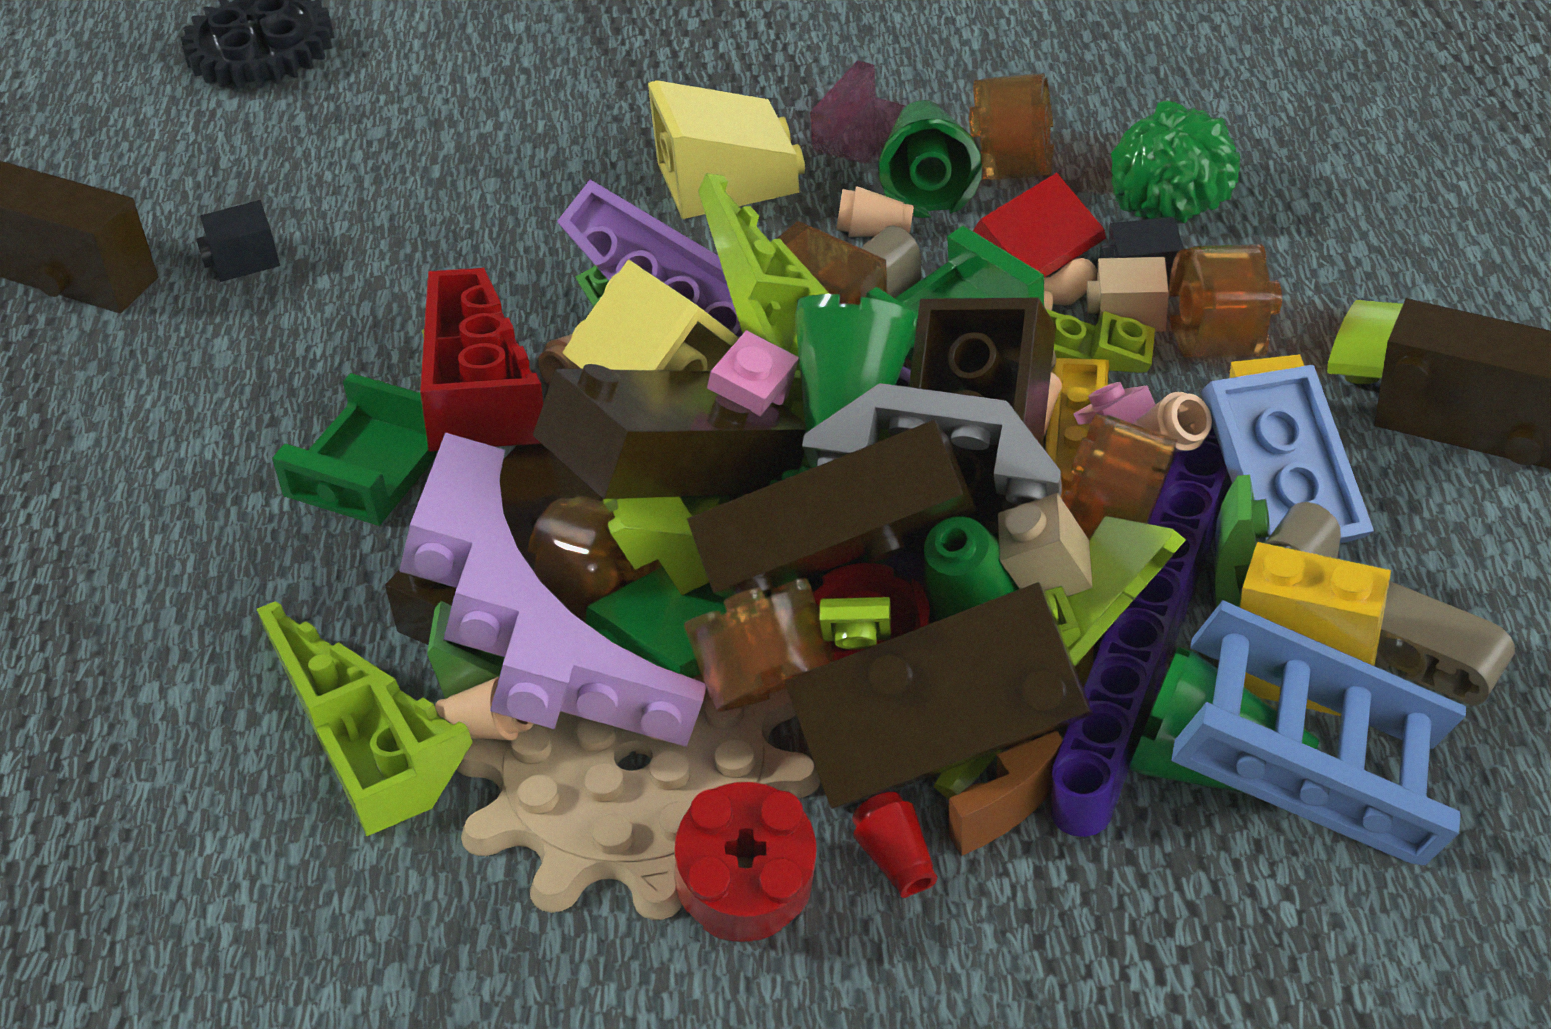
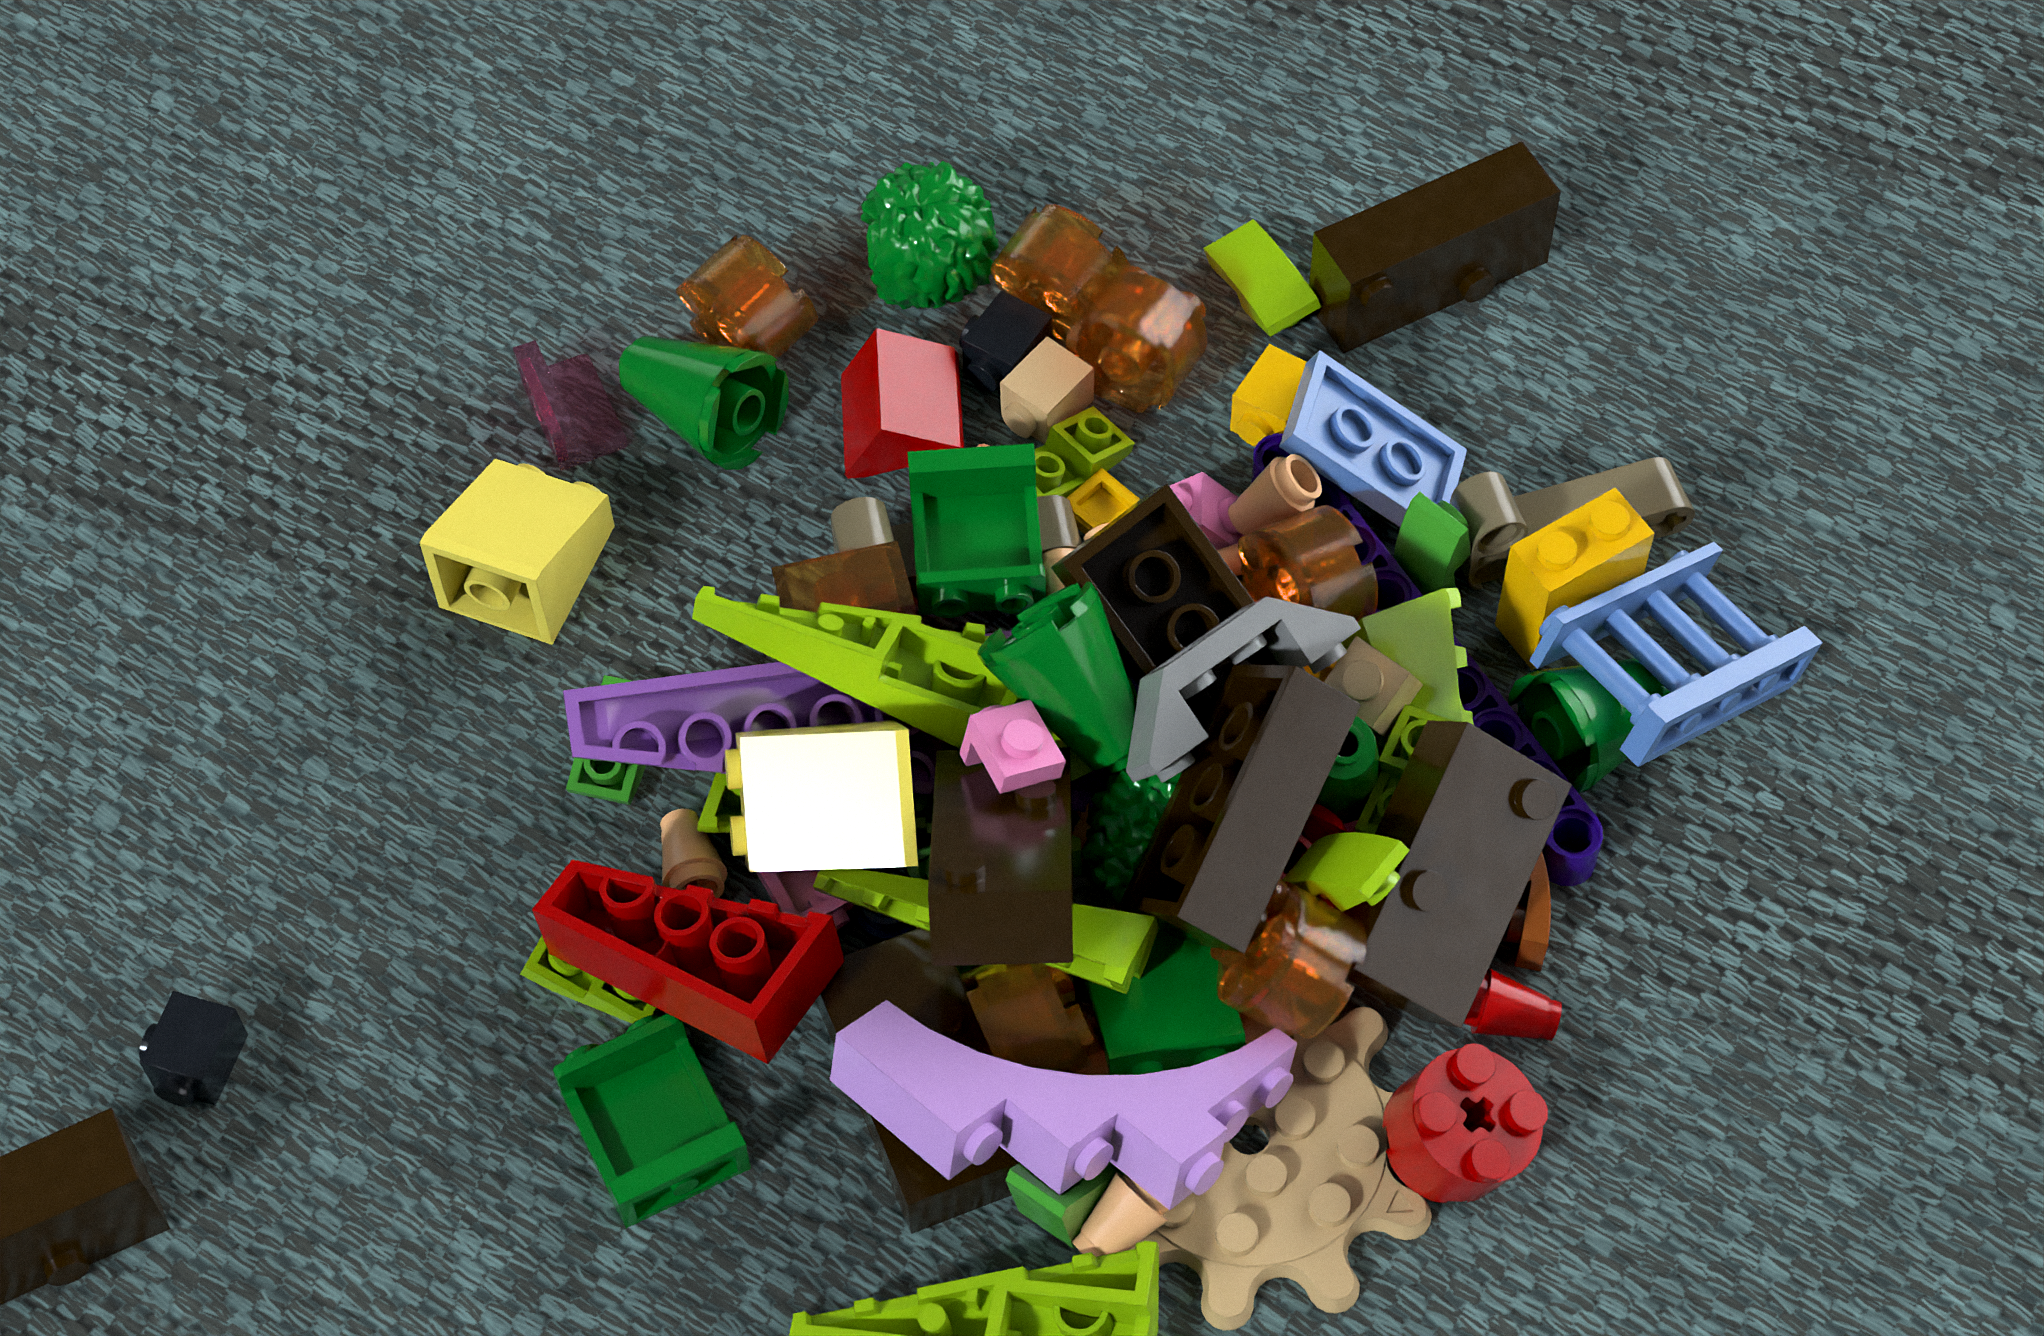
camera: 55 degrees left, 15 degrees up
(868, 213) = (727, 496): light nougat cone -> none
(1071, 281) = (977, 416): light nougat arm -> none
(1224, 215) = (1057, 264): none -> clear orange brick

